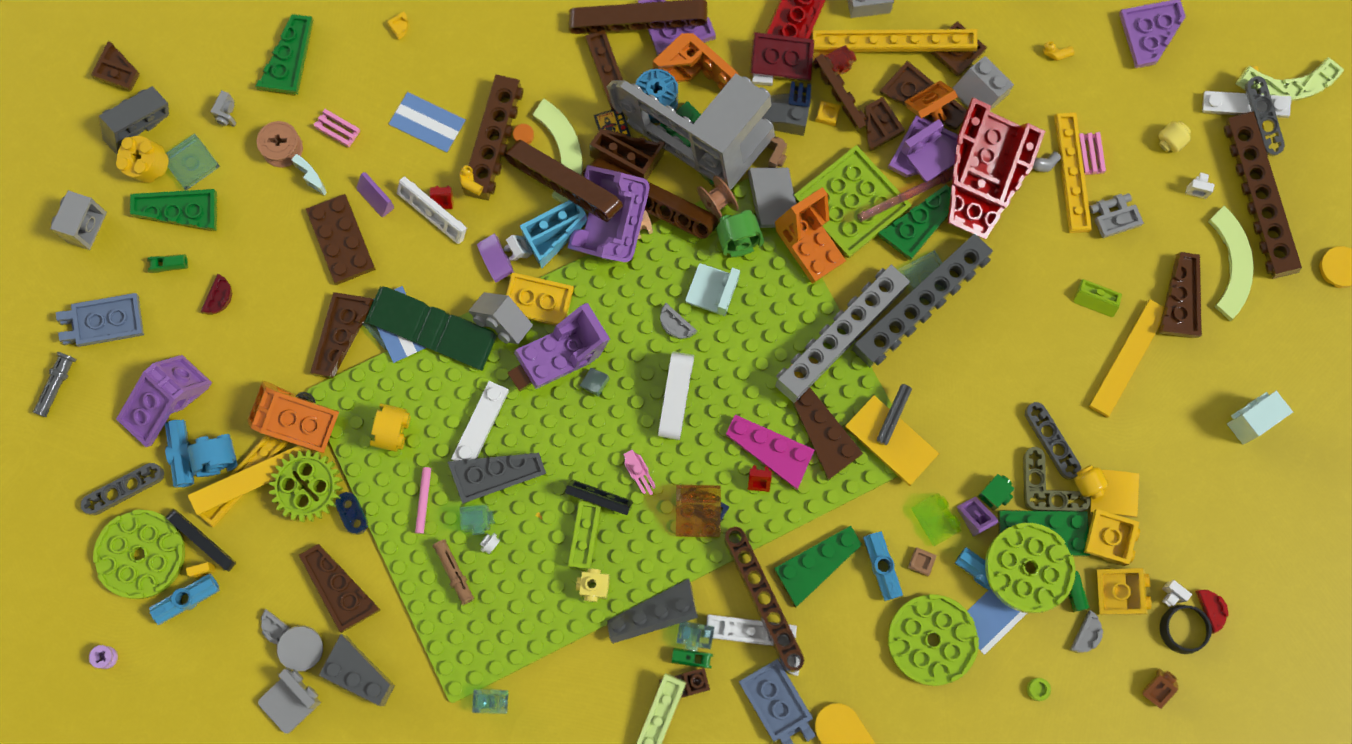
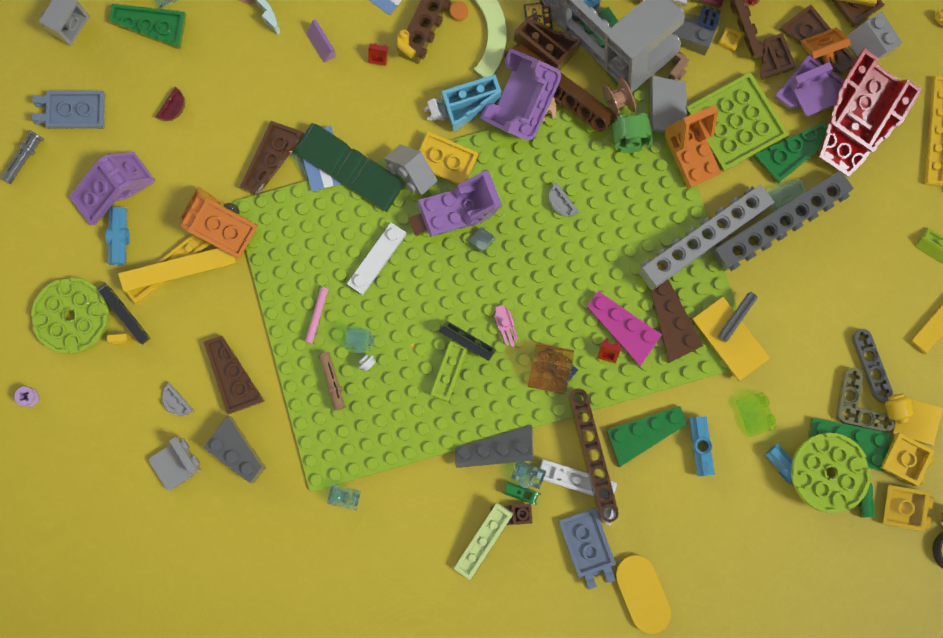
camera: 15 degrees right, 5 degrees up
(122, 488) = (64, 254): dark grey beam -> none
(171, 262) = (136, 69): green bar -> none
(172, 605) = (91, 364): dark azure piece -> none
(212, 455) = (144, 243): dark azure brick -> none
(291, 499) = (204, 294): lime gear -> none
(300, 648) = (191, 420): light grey tile -> none
(340, 239) = (285, 75): reddish brown plate -> none
(351, 514) = (254, 315): clear blue plate -> none
(389, 427) = (298, 247): yellow brick -> none
(431, 210) = (367, 64): white plate -> none
(487, 475) = (376, 304): dark grey wing -> none
(495, 258) = (415, 115): medium lavender slope -> none
(563, 180) = (487, 58): reddish brown beam -> none
(599, 591) = (454, 421): light yellow brick -> none
(676, 395) = (550, 265): white beam -> none
(712, 289) = (599, 177): light aqua bracket -> none
(922, 561) = (736, 448): medium nougat tile -> none
(943, 178) = (822, 115): bar -> none
(956, 635) = (753, 521): lime plate -> none
(976, 516) = (792, 418): medium lavender slope -> none
(992, 620) = (783, 510): medium blue sticker -> none
(997, 492) = (814, 401): green brick -> none
(1038, 689) = (816, 577): lime tile -> none
(1046, 165) = (917, 119): light grey arm -> none
(1088, 635) = (869, 539): light grey tile -> none
(1161, 688) = (924, 598): dark orange bracket -> none

